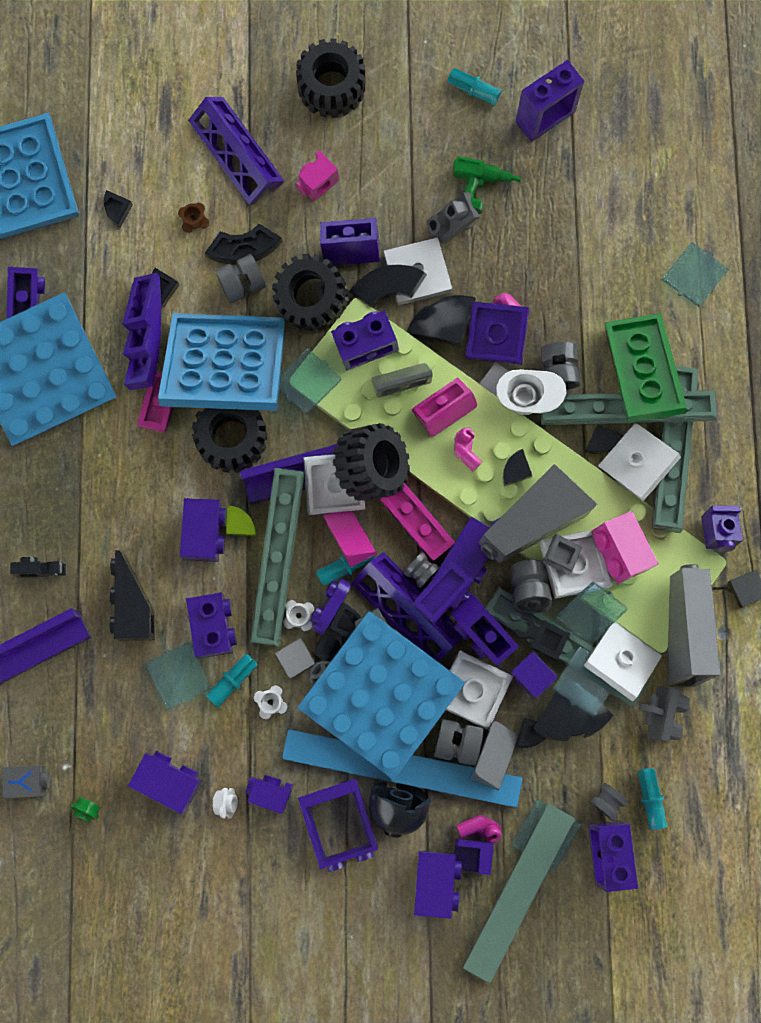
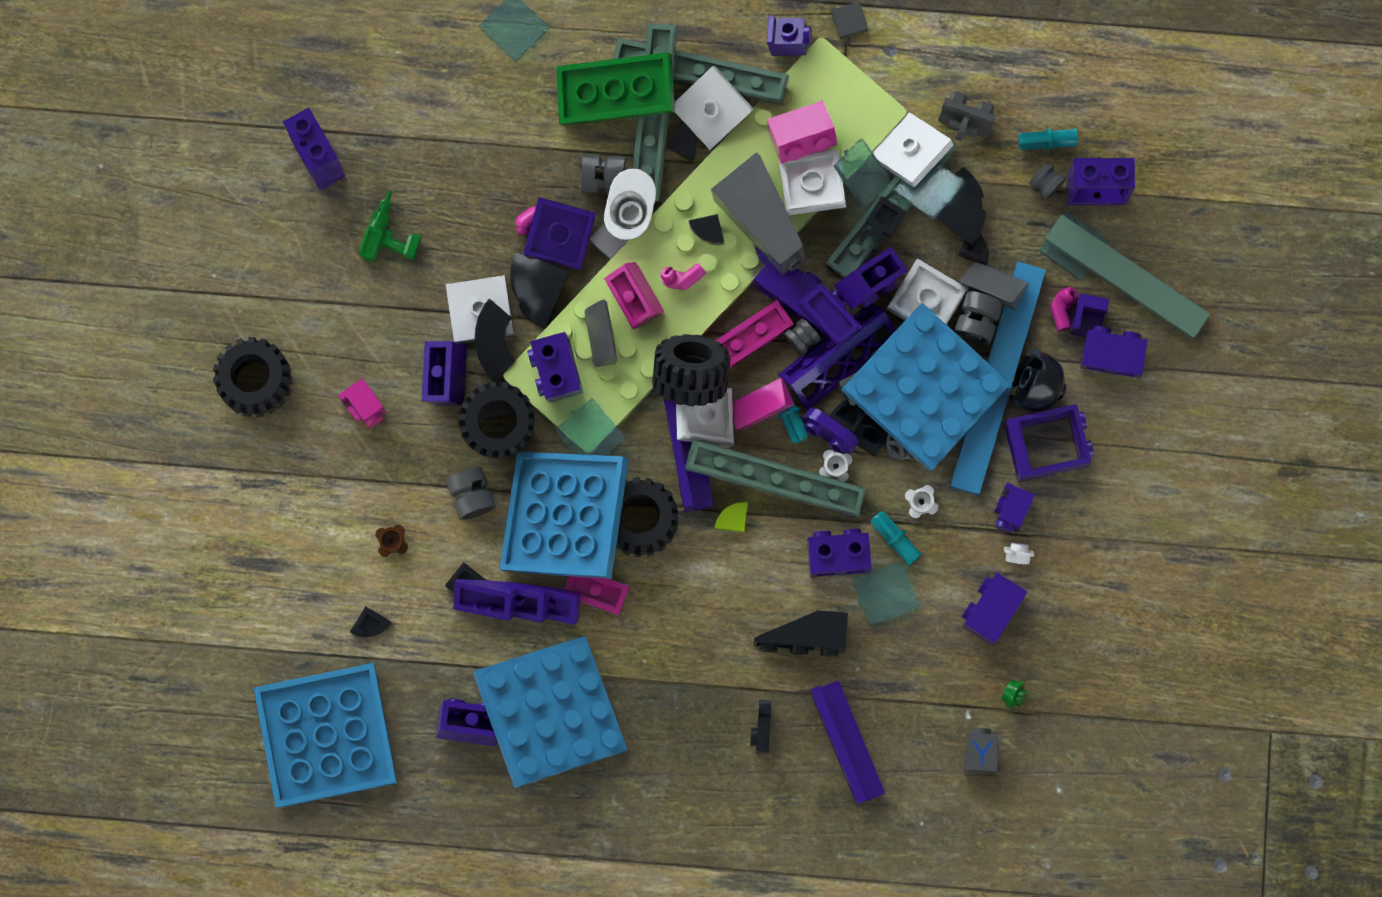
camera: 85 degrees left, 0 degrees up
(202, 530) = (740, 553): dark purple brick -> none
(237, 138) = (314, 480): dark purple fence -> none
(257, 242) = (432, 490): black tile -> none
(295, 658) = (879, 473): light grey tile -> none
(453, 219) = (430, 264): dark grey hips -> none
(474, 86) = (277, 228): teal axle -> none
(531, 586) = (827, 229): dark grey wheel -> none
(533, 675) = (919, 237): dark purple panel -> none
(562, 554) = (803, 192): dark grey tile -> none
(692, 628) = (887, 78): slope -> none

